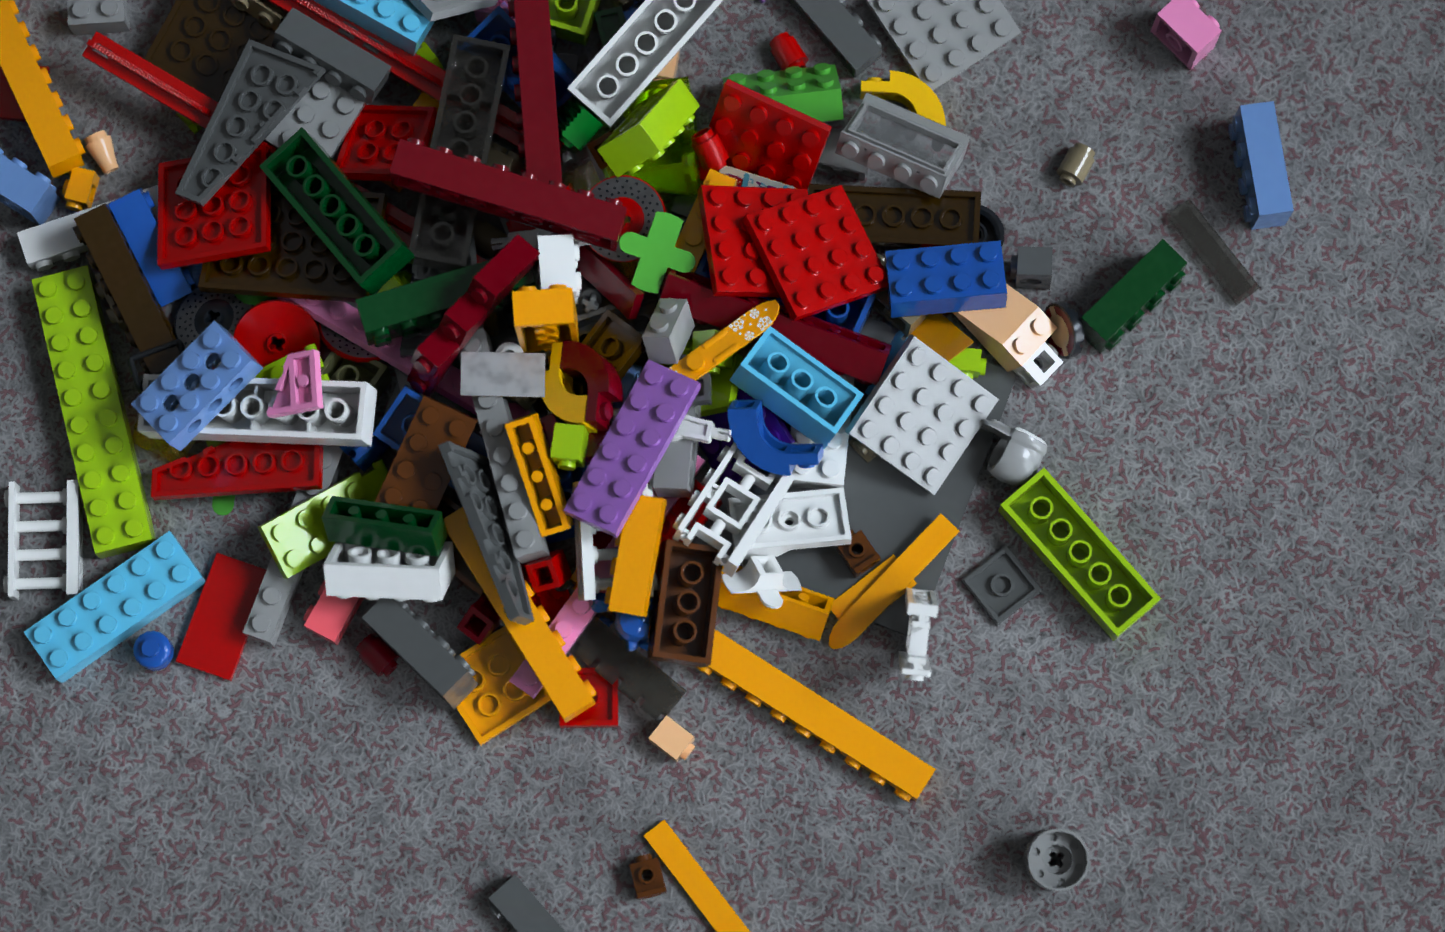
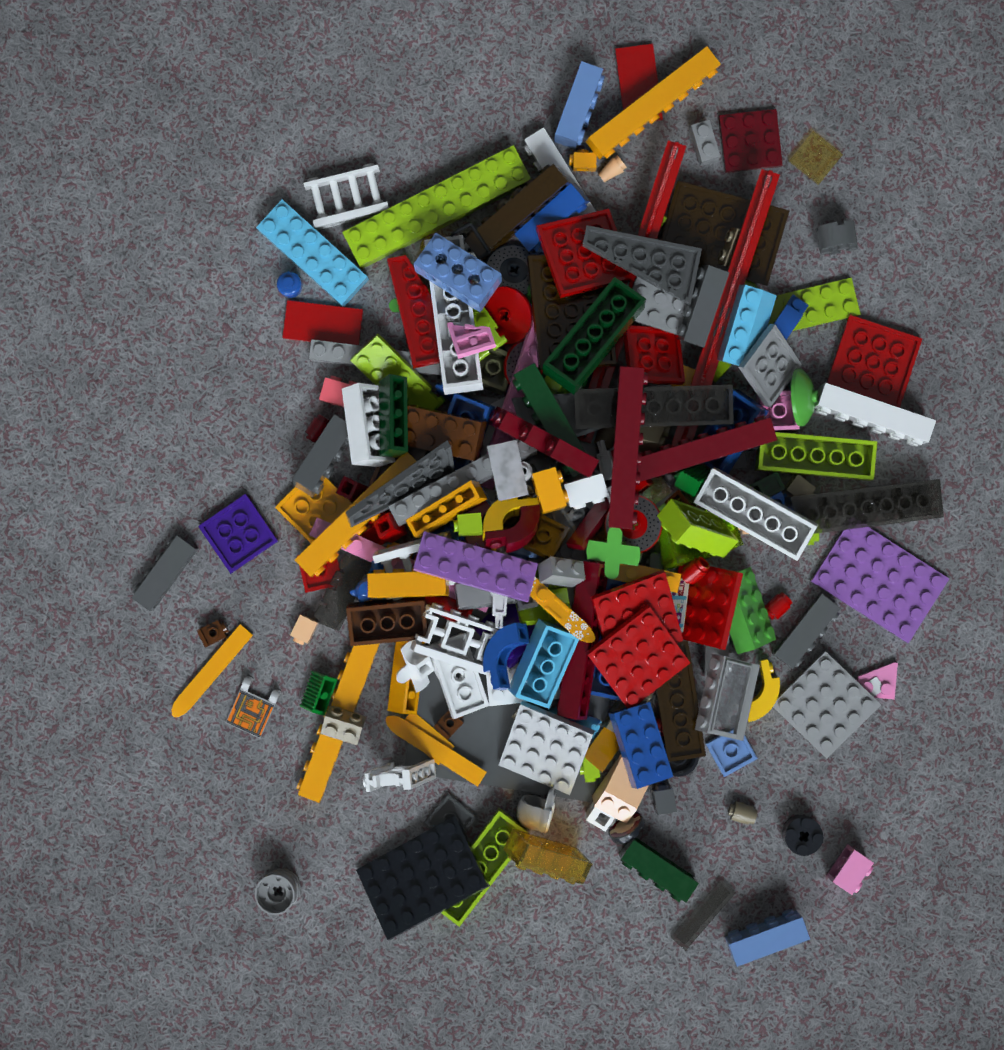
camera: 80 degrees right, 10 degrees up
(507, 808) = (238, 533): none -> dark purple plate
(771, 736) = (318, 693): none -> green brick
(778, 847) = (252, 711): none -> flag
(827, 706) = (343, 725): none -> dark tan bracket
(987, 163) = (730, 753): none -> medium blue tile
(1078, 638) = (422, 878): none -> black plate
(1082, 447) = (547, 857): none -> clear yellow brick
(1131, 73) = (813, 836): none -> black brick

